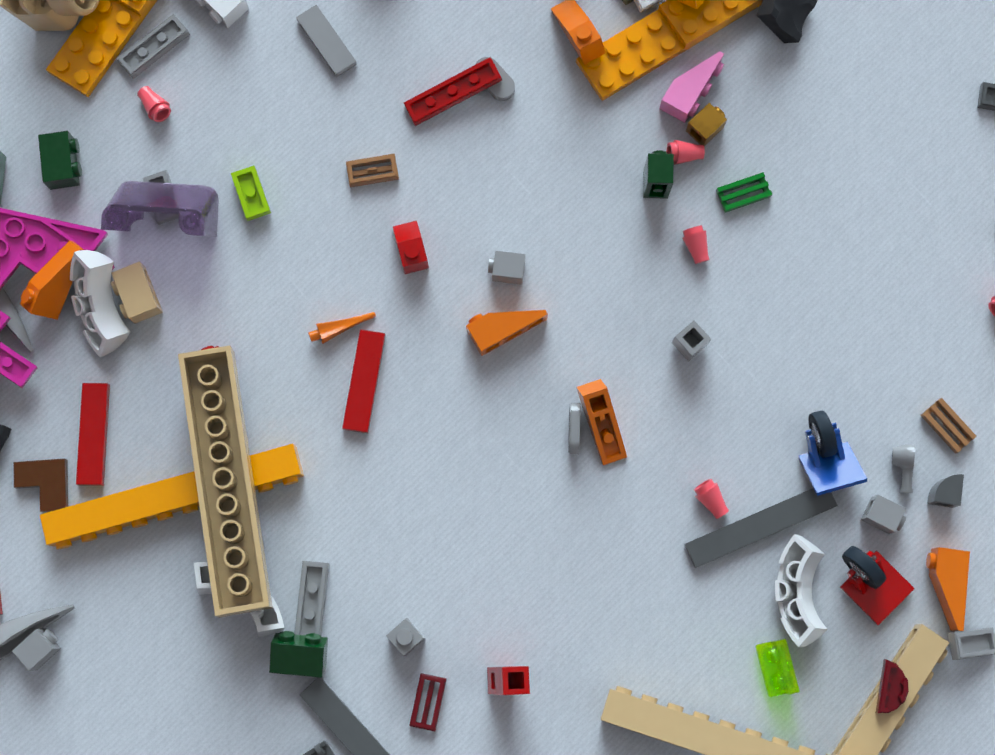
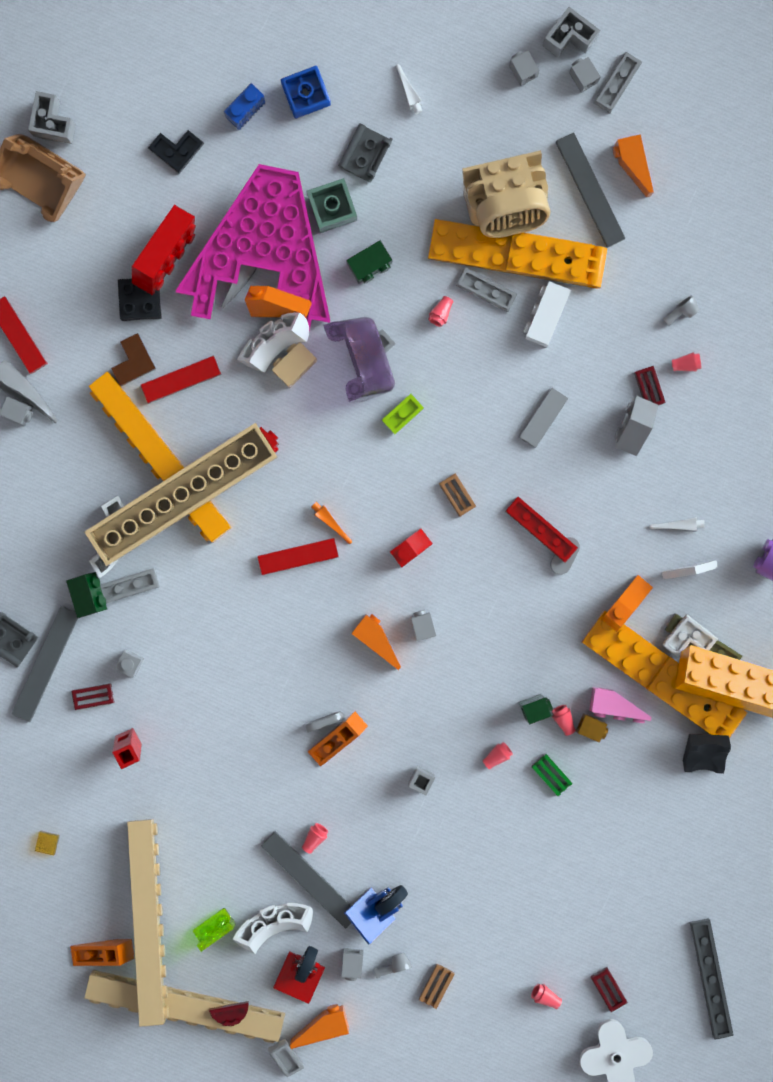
camera: 65 degrees right, 10 degrees up
(947, 492) = (387, 1002): dark grey brick -> none

